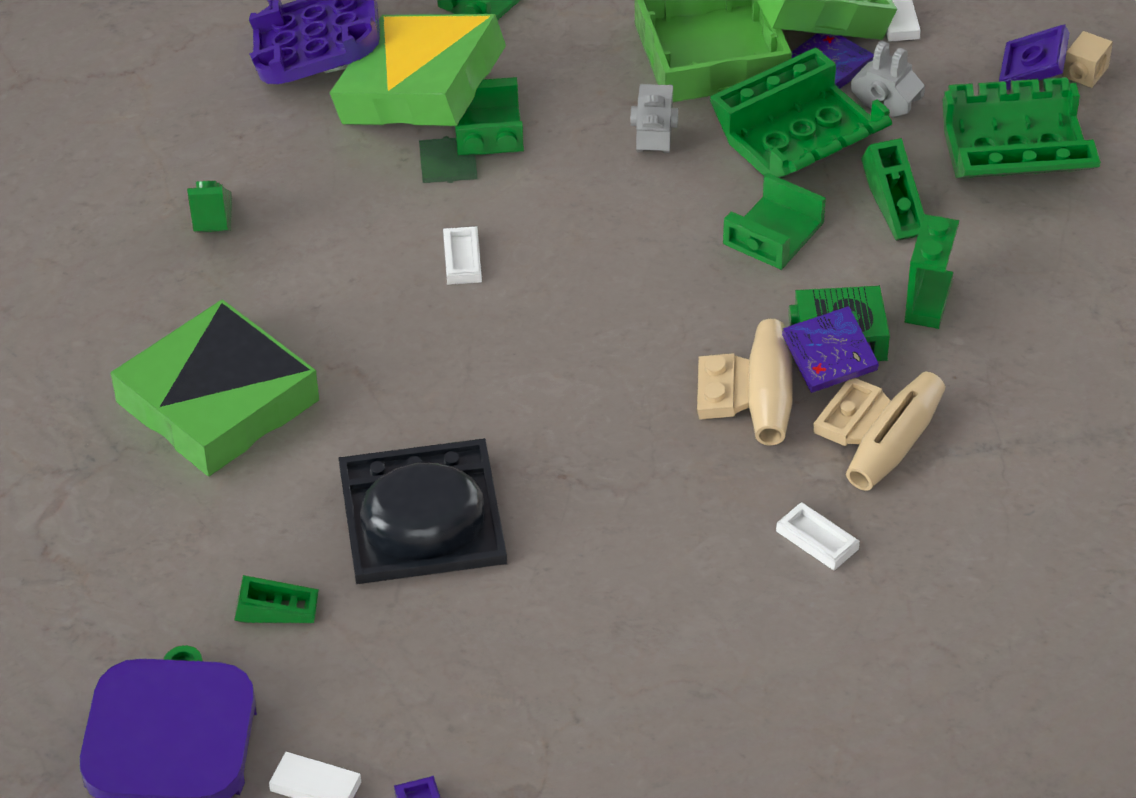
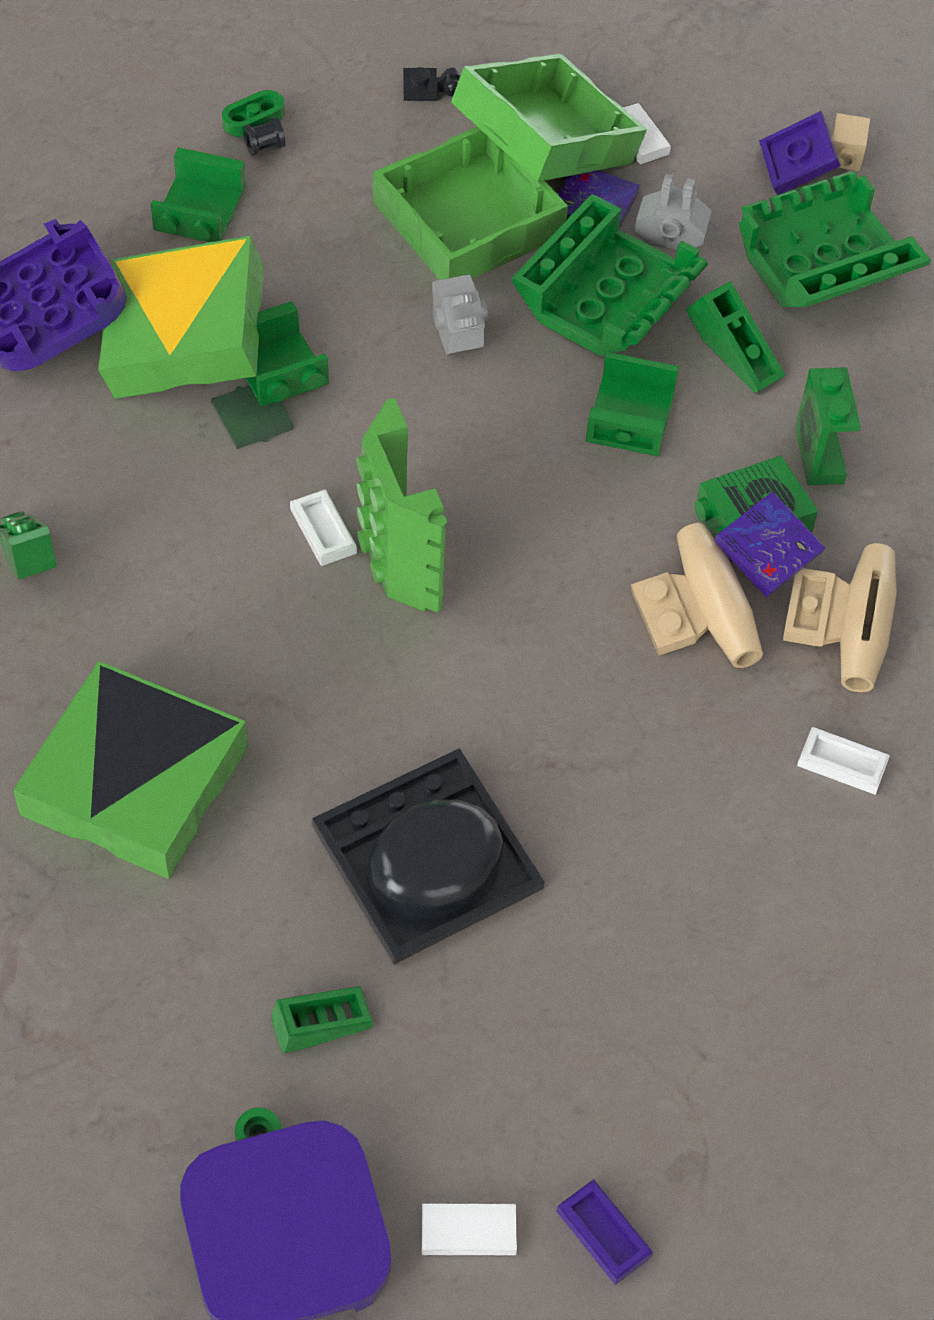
camera: 25 degrees left, 10 degrees up
(508, 241) = (399, 530): none -> bright green slope

